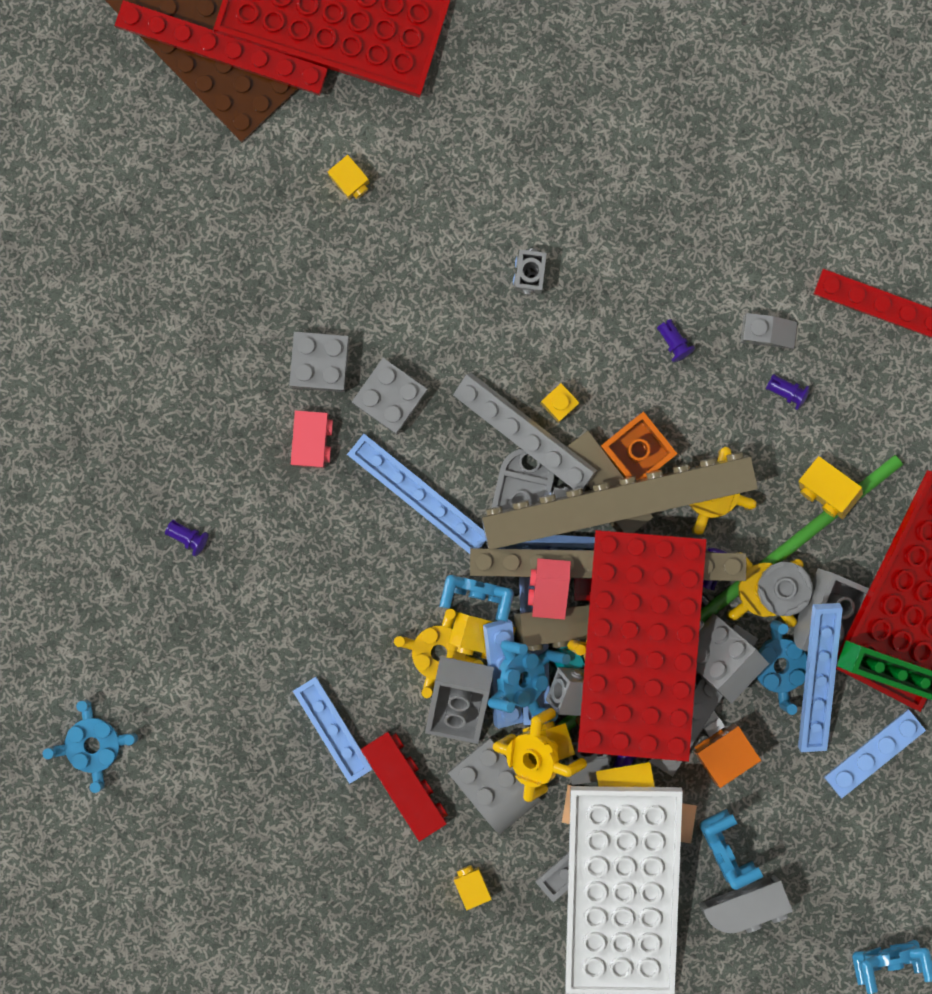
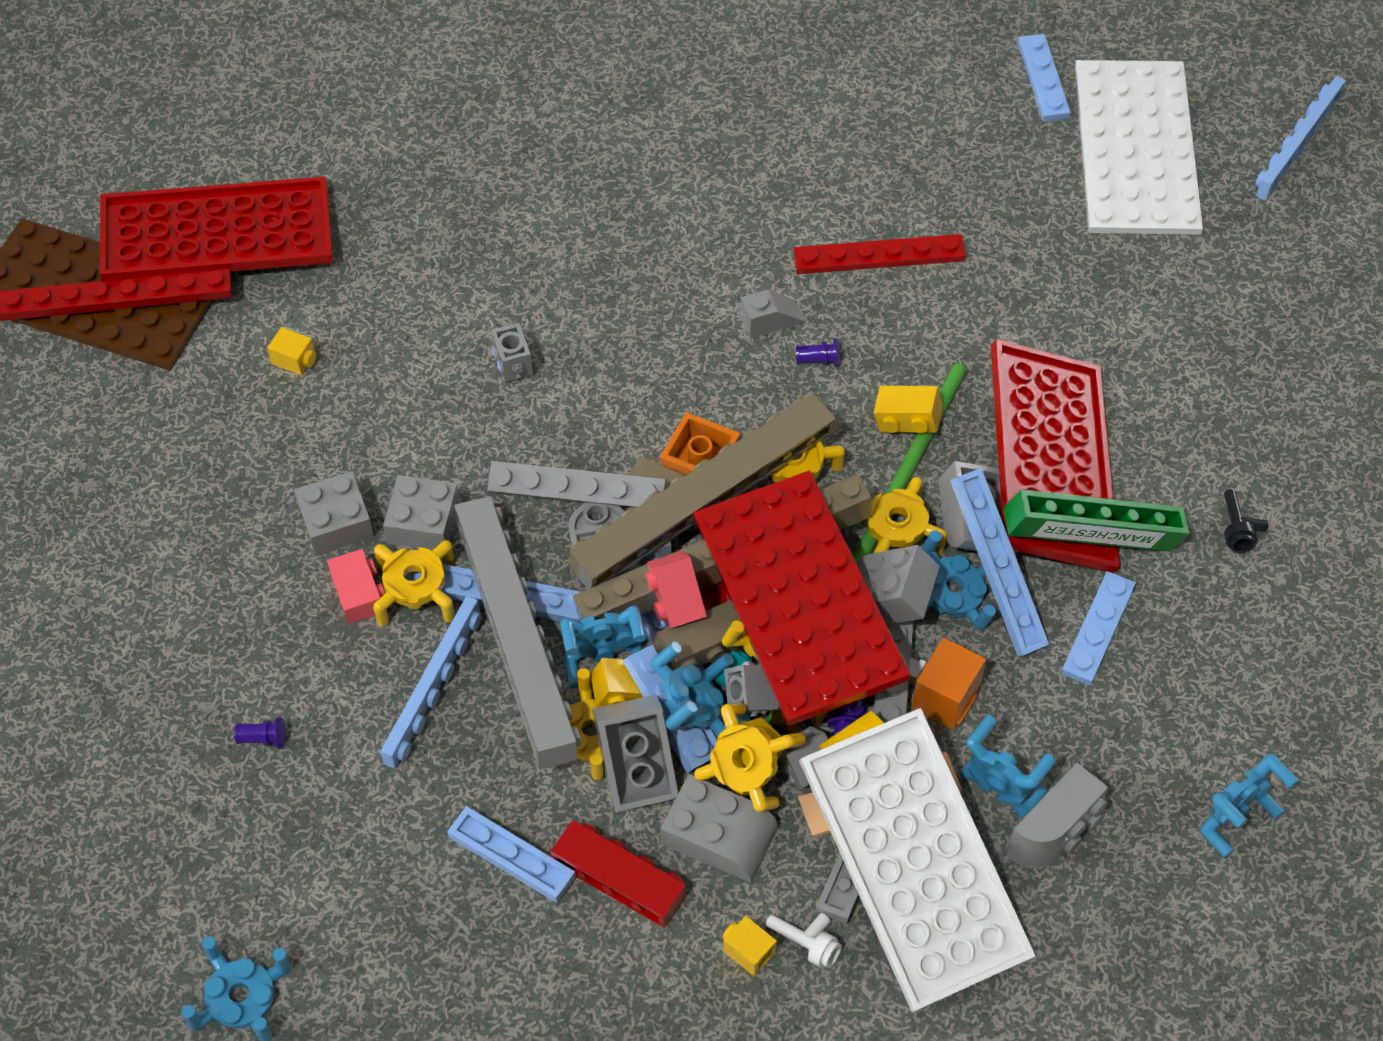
camera: 25 degrees left, 30 degrees down
(326, 564) = (427, 690): none -> light blue plate
(357, 475) = (413, 593): none -> yellow plate
(414, 550) = (516, 634): none -> light grey brick
(524, 916) = (822, 946): none -> white piece
(559, 403) = (599, 449): yellow brick -> none
(676, 343) = (690, 359): dark purple pin -> none
(784, 588) = (915, 503): light grey tile -> none

